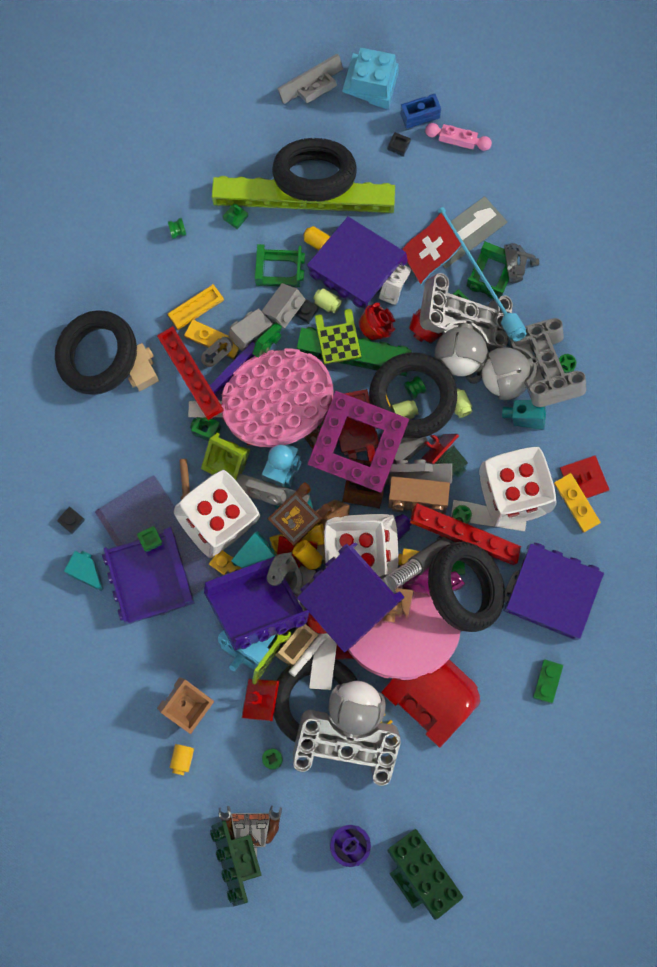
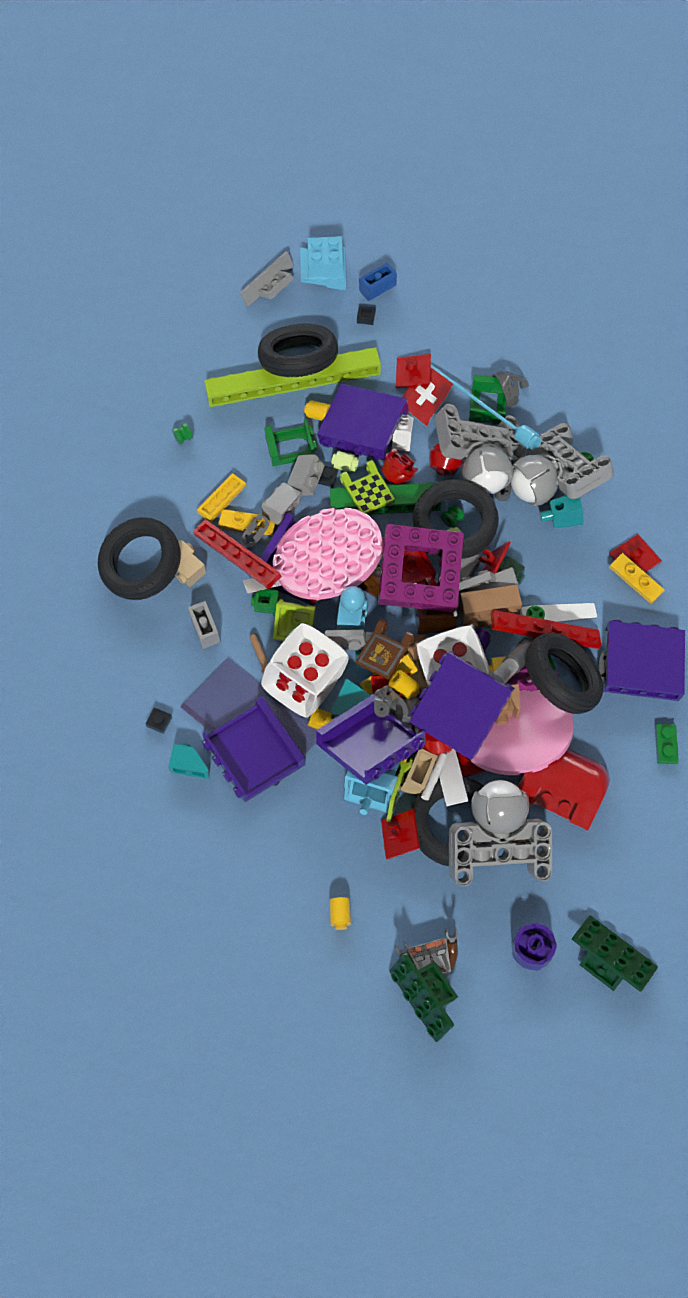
camera: 20 degrees left, 10 degrees down
(138, 437) = (203, 625): none -> light grey brick
(149, 539) = (244, 713): green plate -> none
(185, 705) = (330, 857): medium nougat brick -> none
(235, 216) = (234, 410): green tile -> none
(265, 342) = (301, 507): green plate -> none
(274, 761) = (429, 892): green wheel -> none
(427, 218) = (413, 371): none -> red piece
(458, 136) = (418, 296): bright pink plate -> none
(463, 405) = (504, 521): yellowish green brick -> none
(475, 226) = (460, 366): light grey sticker -> none
(517, 486) = (579, 574): white piece -> none

